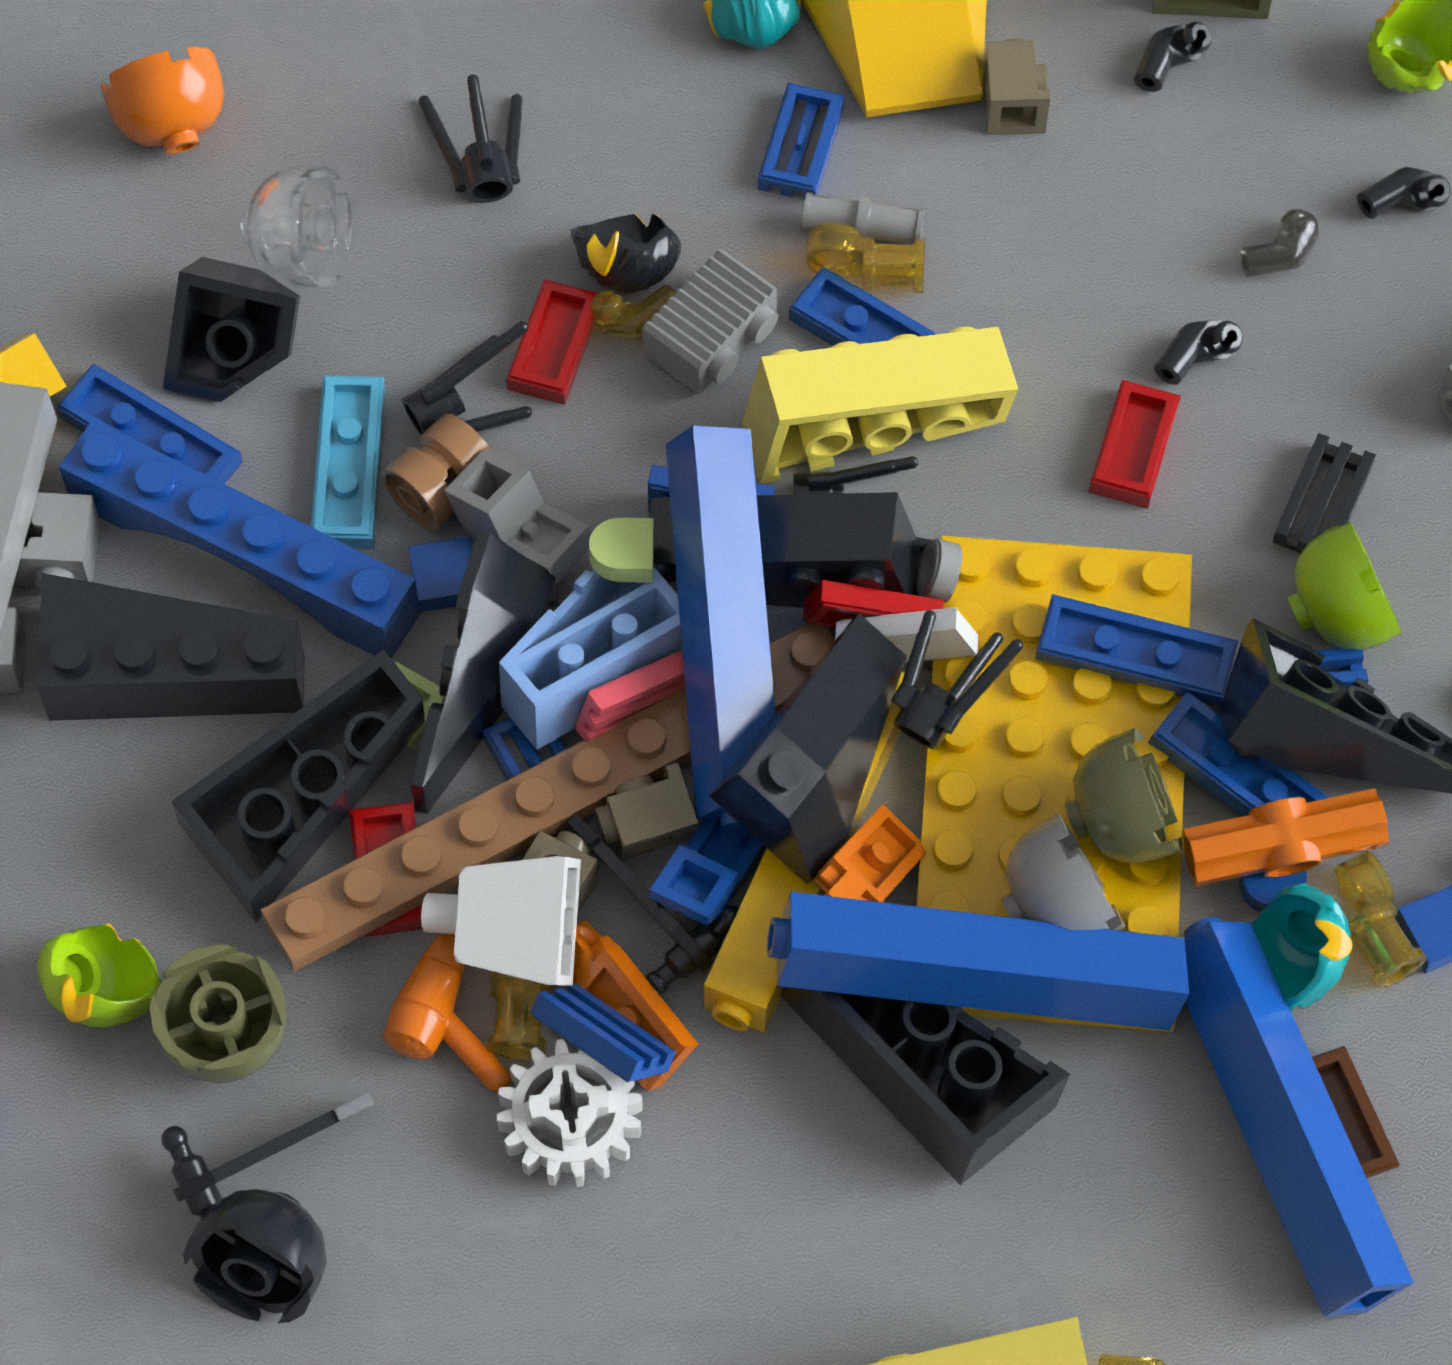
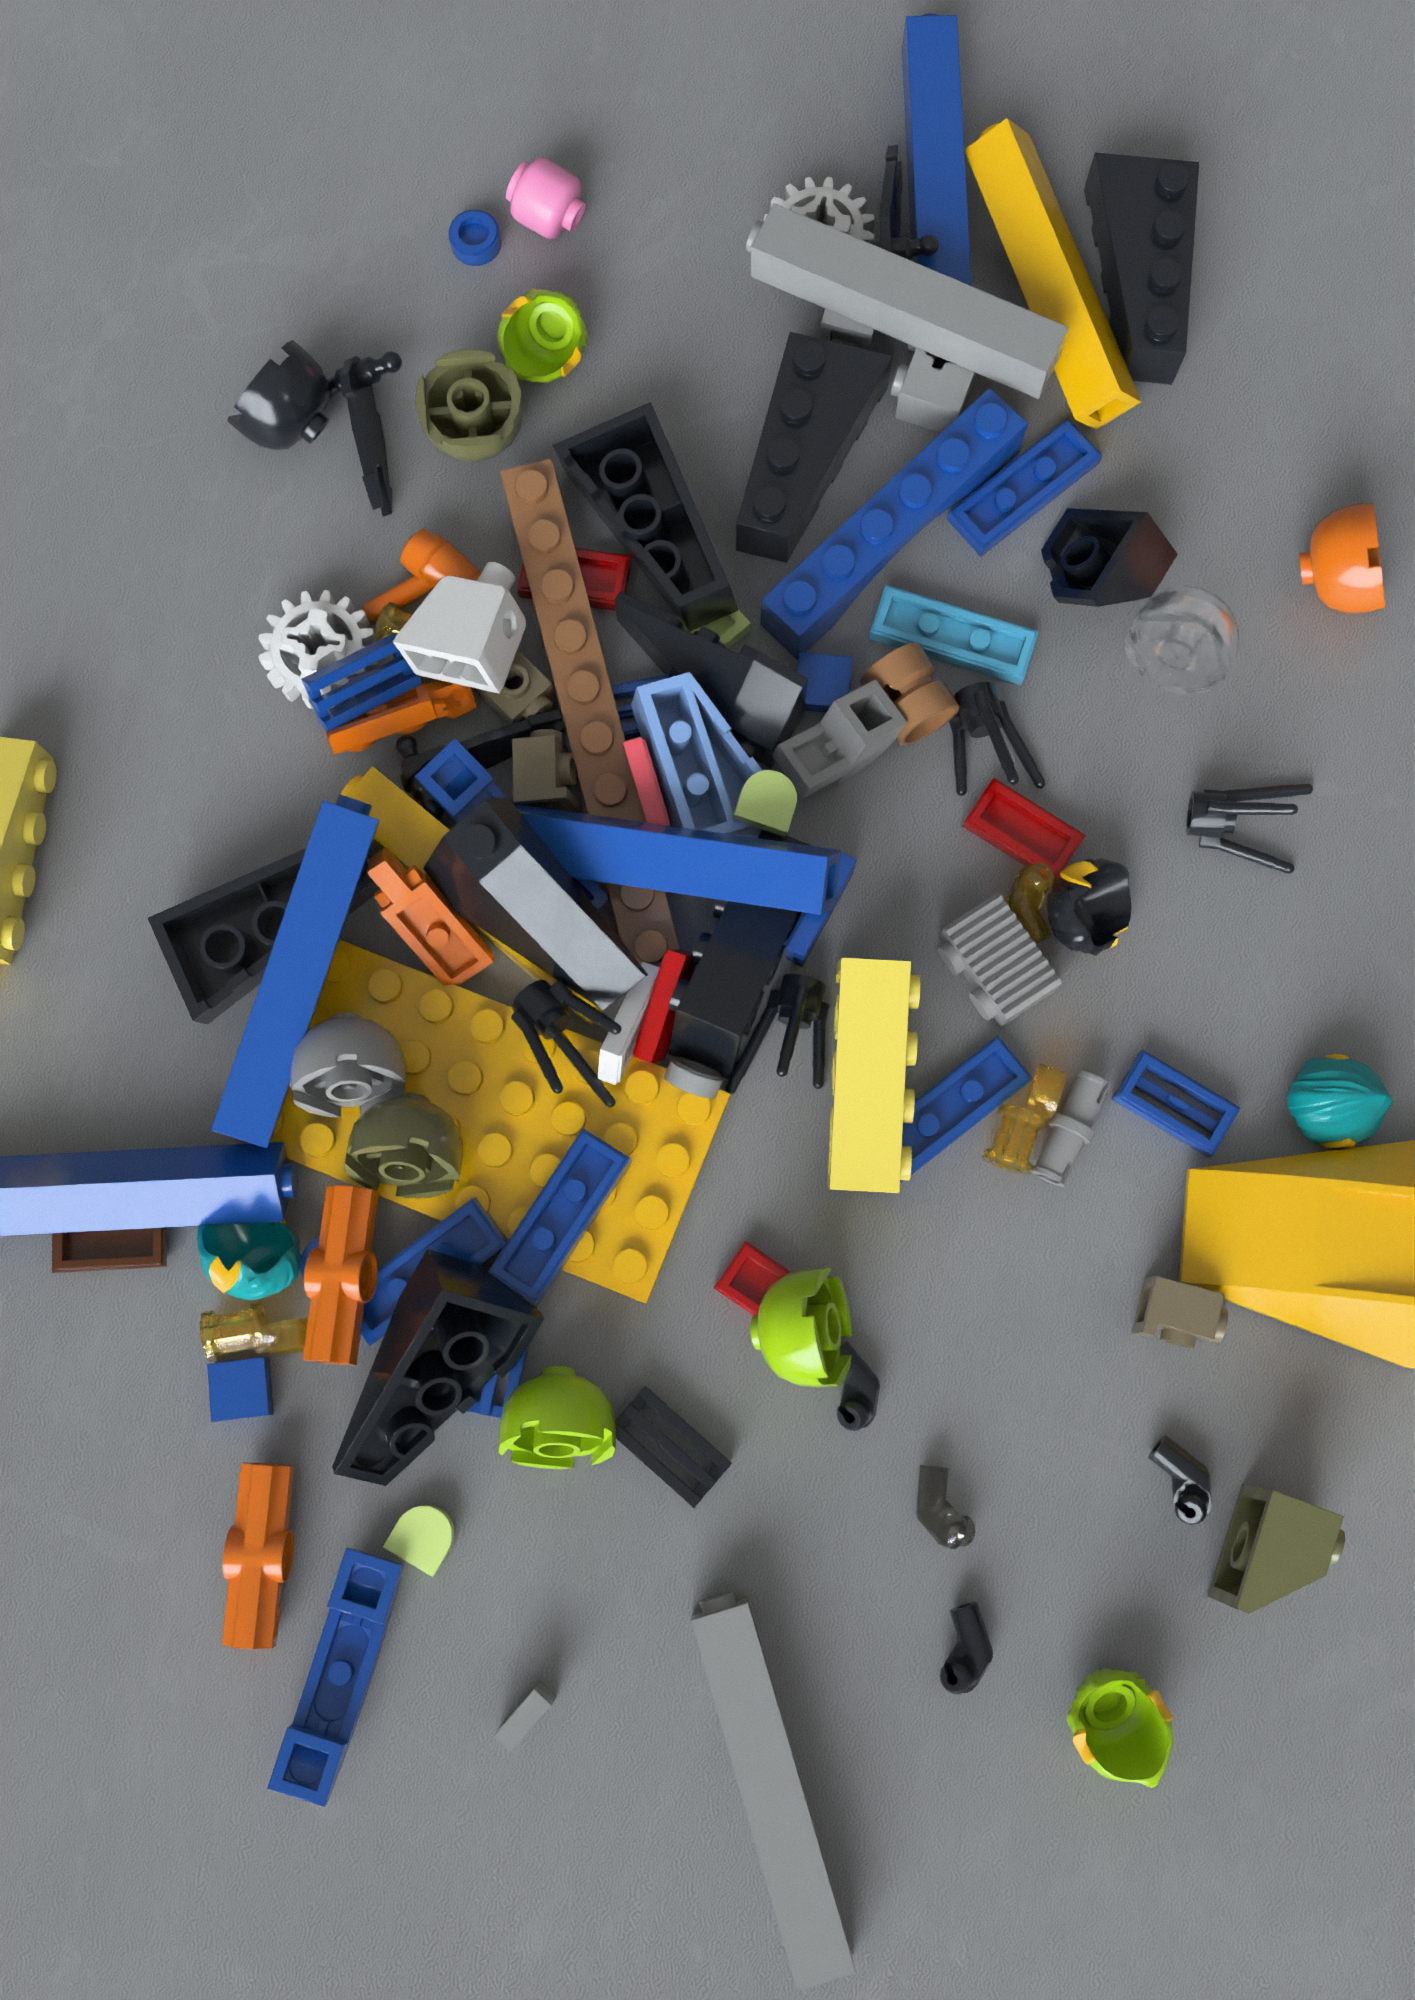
camera: 110 degrees right, 15 degrees up
(1166, 383) = (803, 1328): none -> lime cylinder

